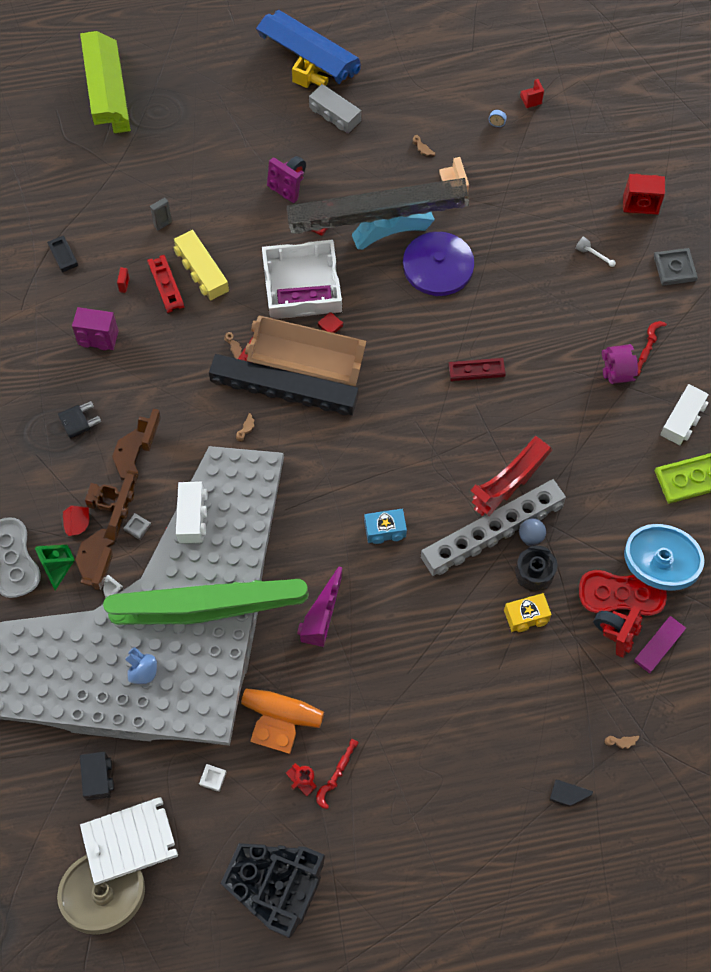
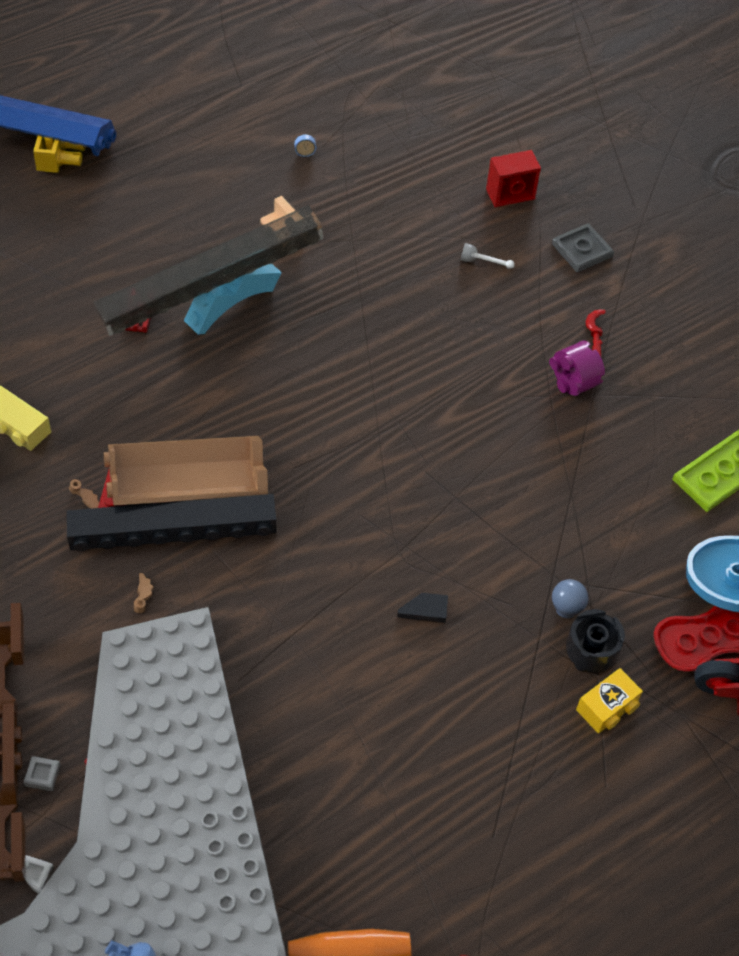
camera: 25 degrees left, 10 degrees down
(191, 512) = (116, 725): white brick -> none
(203, 602) = (181, 842): bright green piece -> none
(286, 177) = (75, 275): magenta plate -> none
(299, 267) = (143, 388): white tile -> none
(303, 294) = (154, 408): magenta tile -> none
(318, 619) = (348, 810): magenta wedge -> none
(330, 323) = (201, 429): red tile -> none
(334, 108) = (103, 185): light grey brick -> none
(385, 526) = (381, 655): dark azure brick -> none
(423, 148) = (229, 201): medium nougat piece -> none
(431, 503) = (425, 607): none -> black tile
(437, 565) = (469, 680): light grey brick -> none
(438, 263) = (305, 323): dark purple dish -> none
(476, 369) = (407, 429): dark red tile -> none
(518, 472) = (510, 551): red arch -> none
(533, 96) = (336, 112): red panel -> none
(685, 415) = (677, 404): white brick -> none

